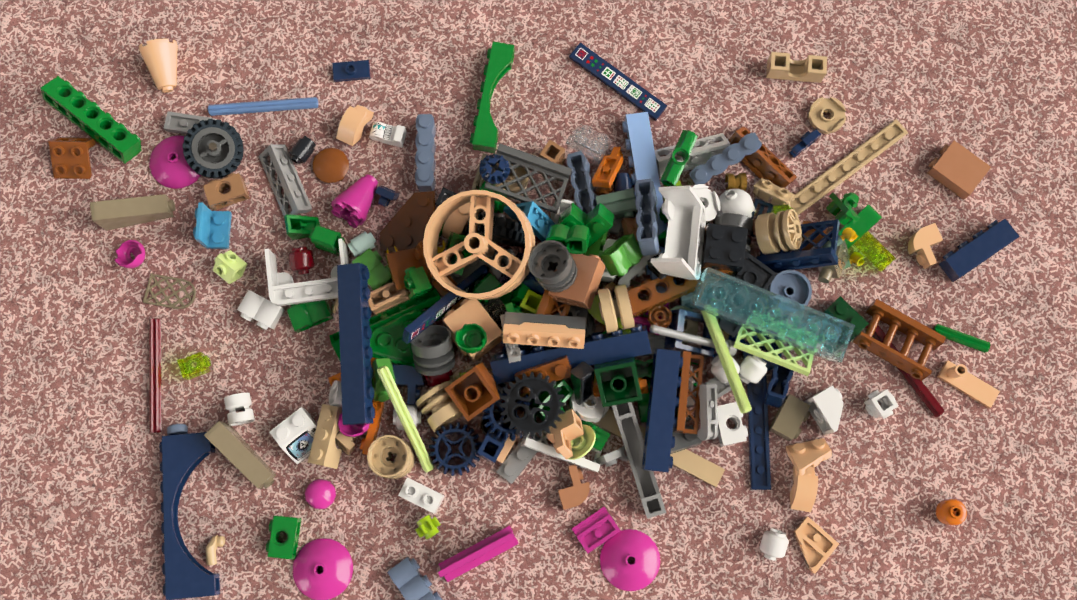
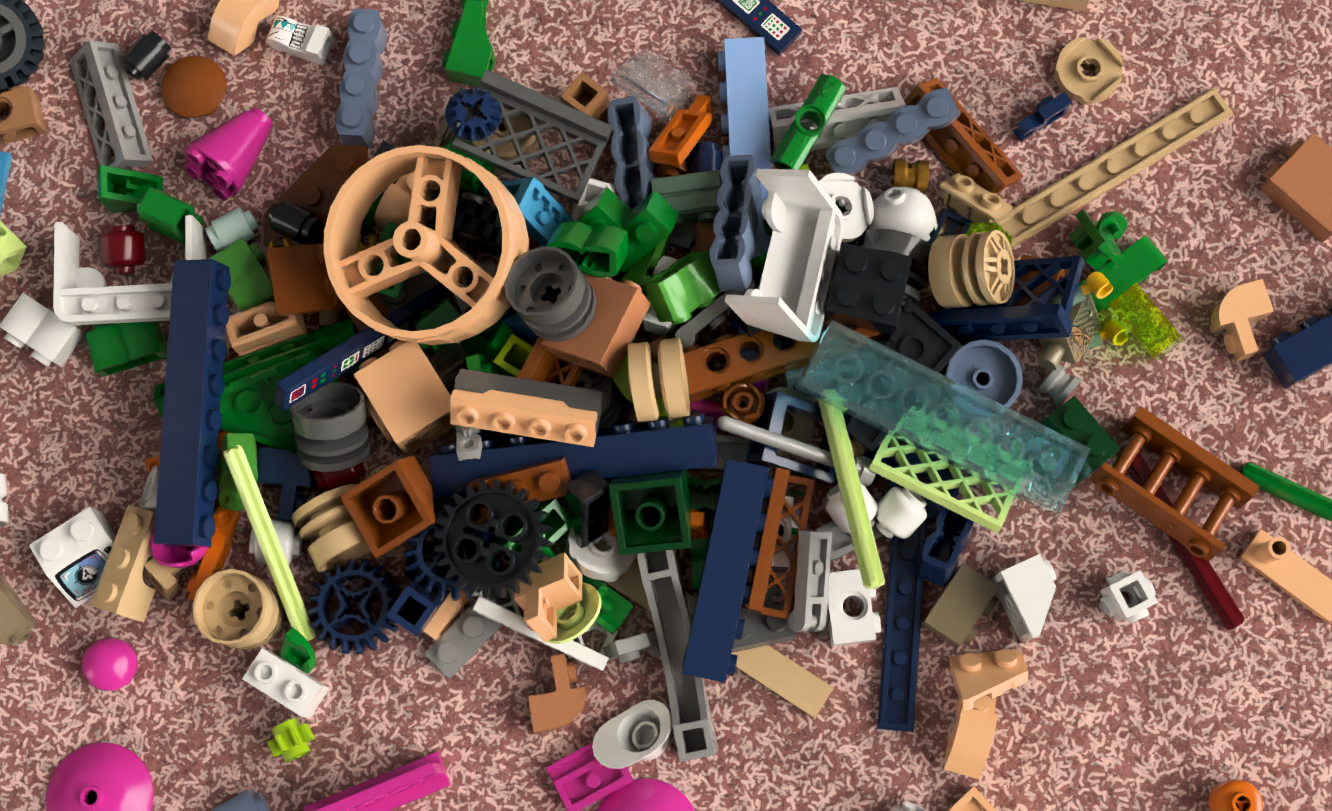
camera: 10 degrees right, 0 degrees up
(291, 527) = (52, 719): green brick -> none
(386, 195) = (285, 147): dark blue tile -> none
(399, 237) = (295, 222): none -> black brick
(416, 282) = (313, 303): green brick -> none
(425, 477) = (298, 651): none -> green tile
(471, 338) = (396, 411): green hair -> none
(618, 506) = (634, 735): none -> white piece
(830, 291) = (1059, 385): none -> light grey wheel

